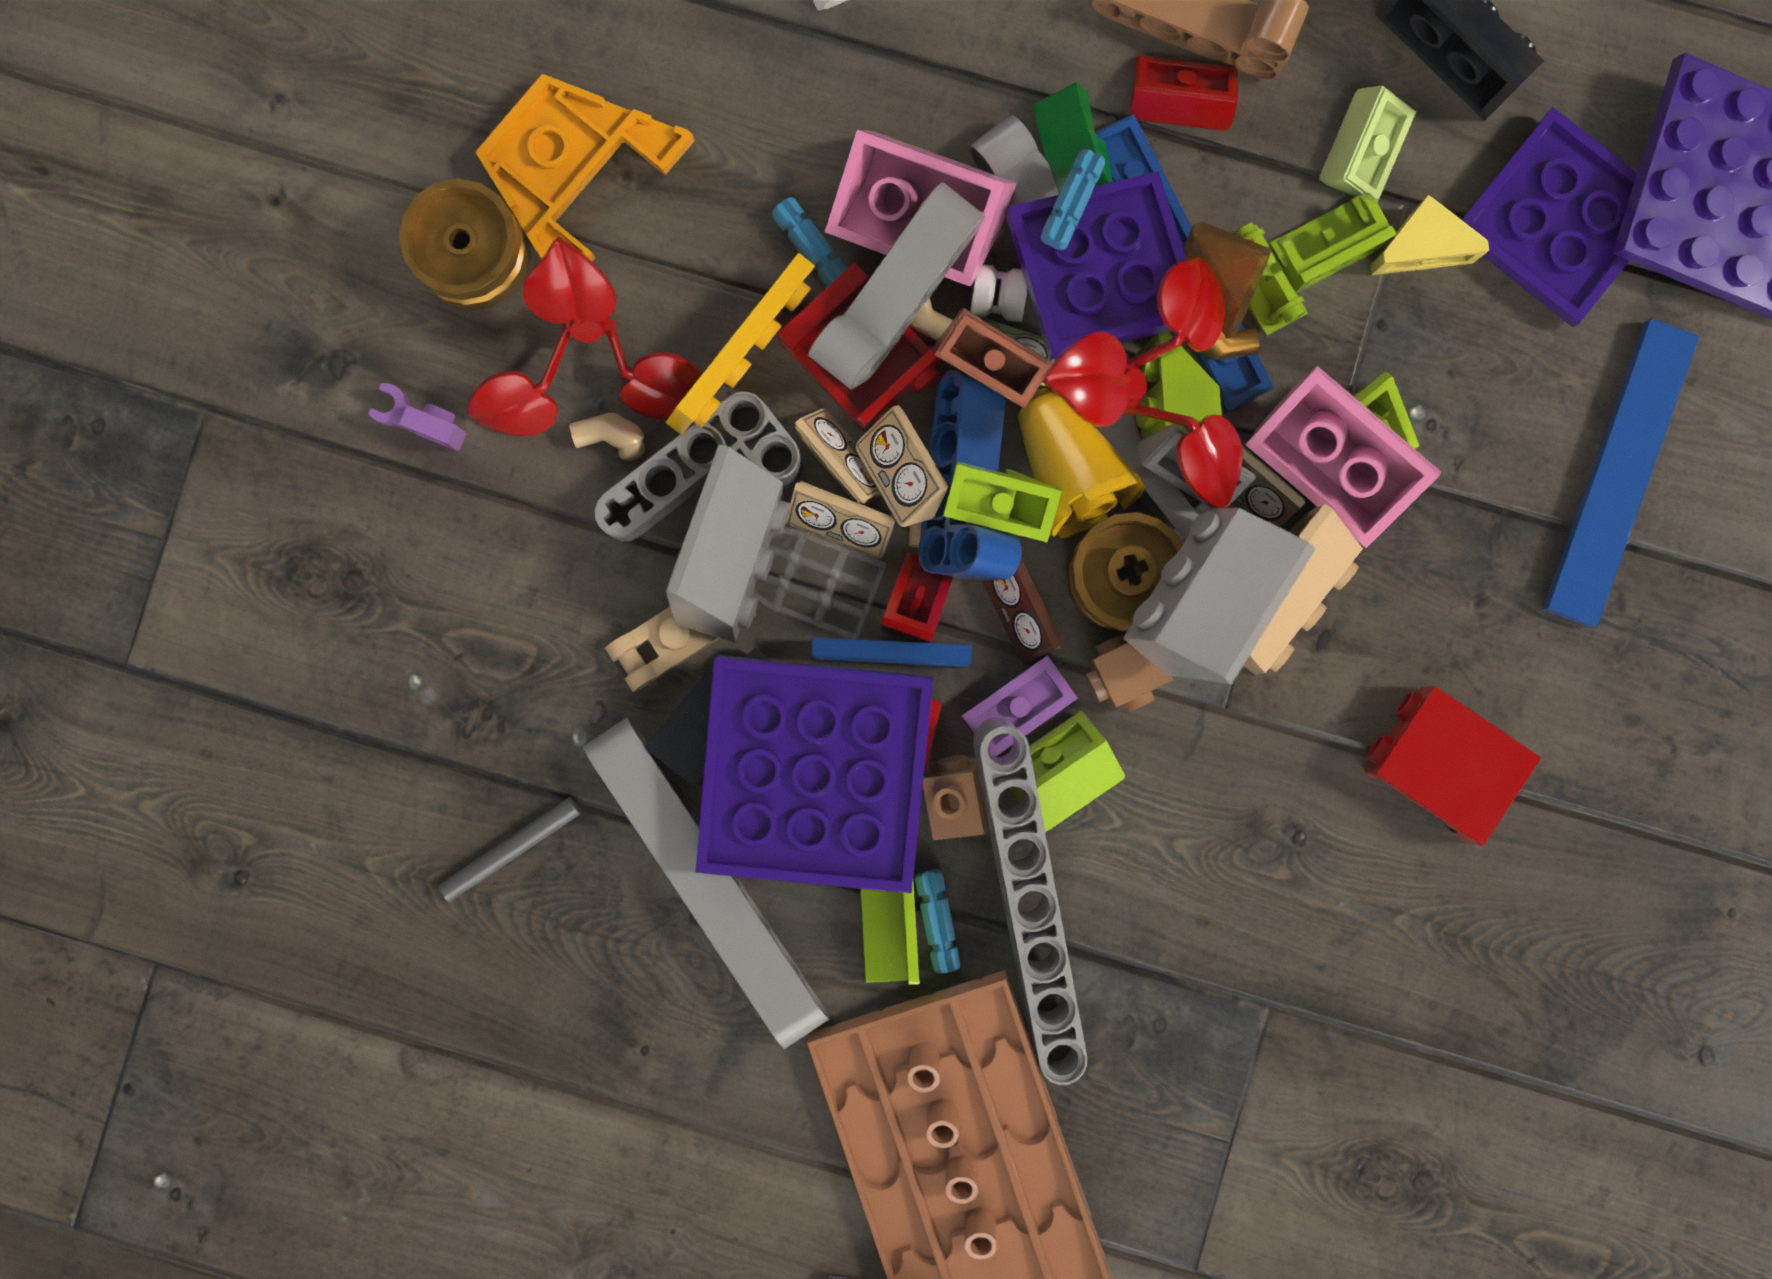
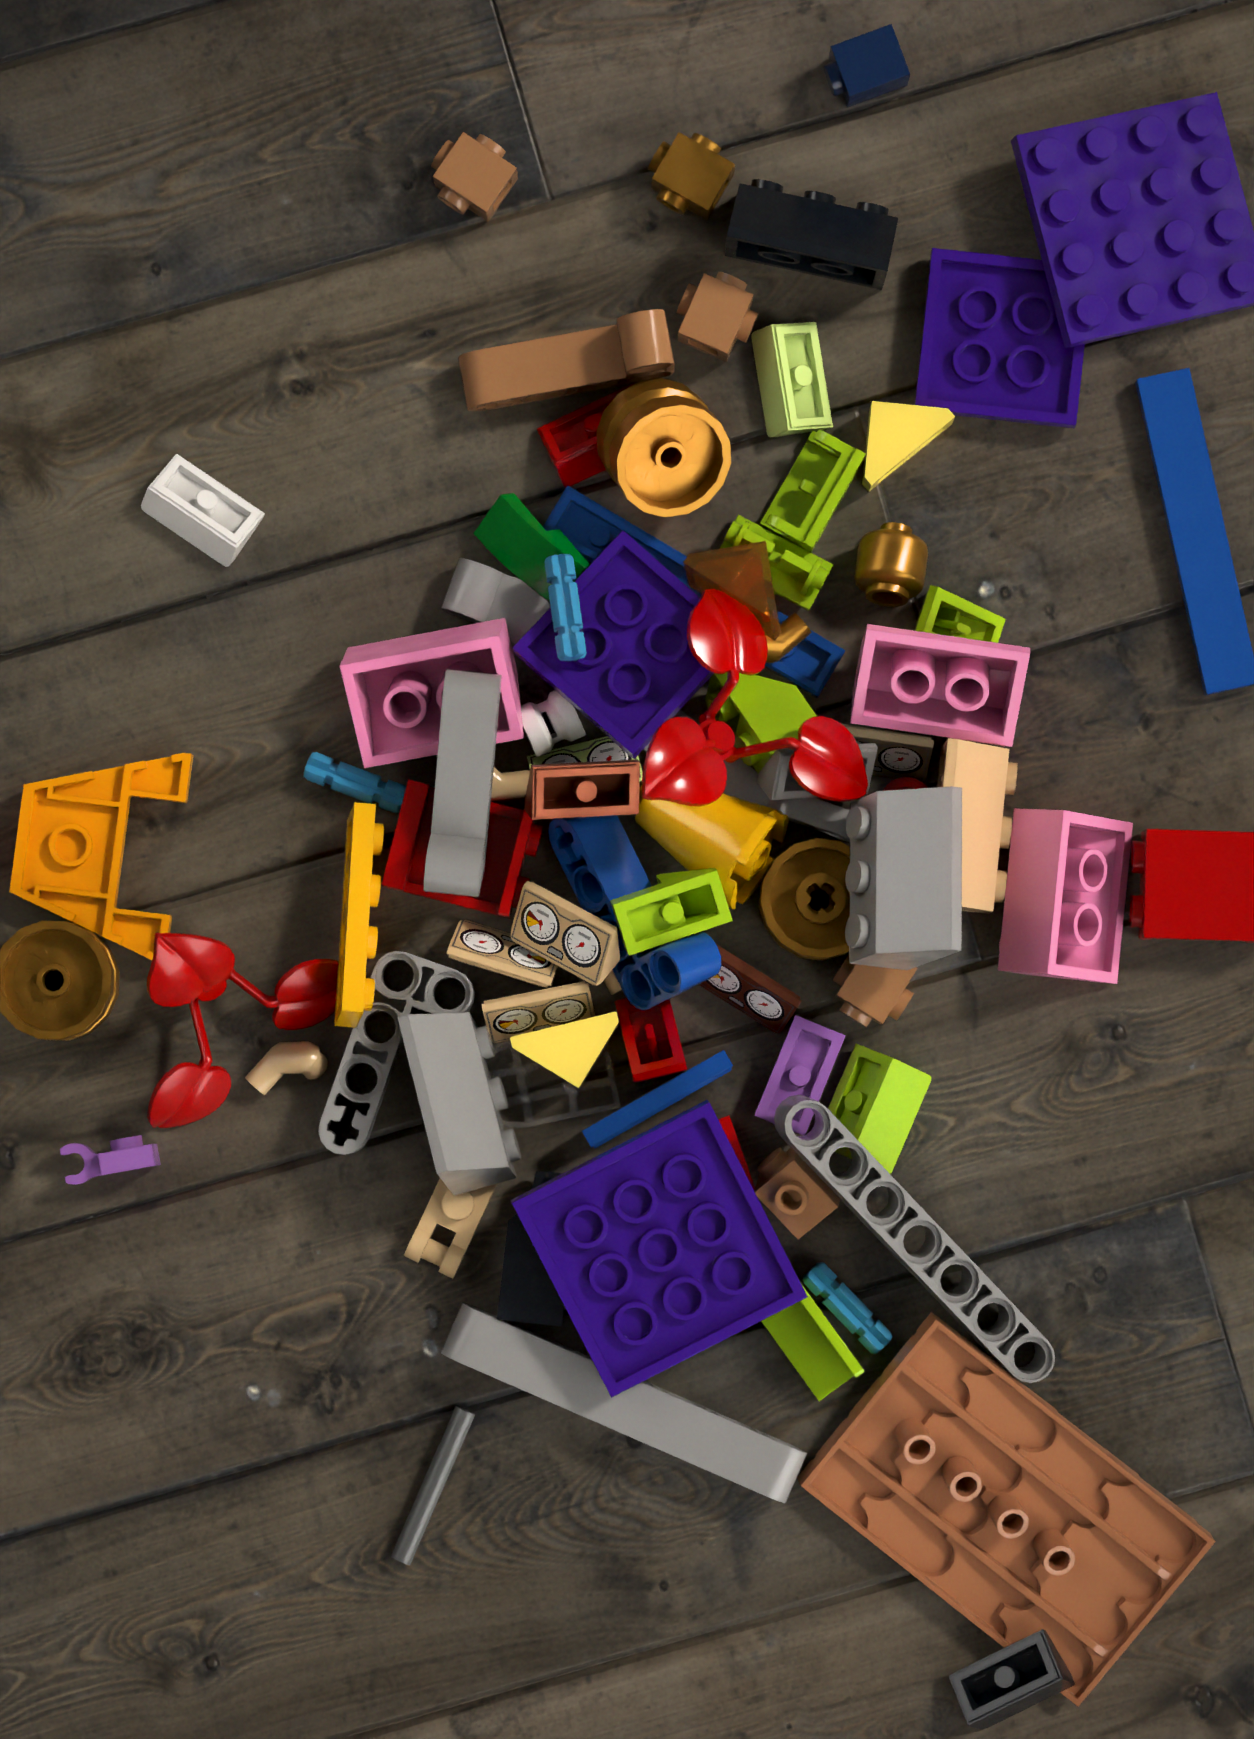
camera: 25 degrees left, 0 degrees up
(846, 563) = (570, 1047): none -> light yellow slope
(1229, 153) = (663, 447): none -> wheel
(1329, 697) = (1065, 895): none -> bright pink slope
(1341, 52) = (716, 315): none -> medium nougat brick
(1357, 341) = (891, 565): none -> pearl gold head

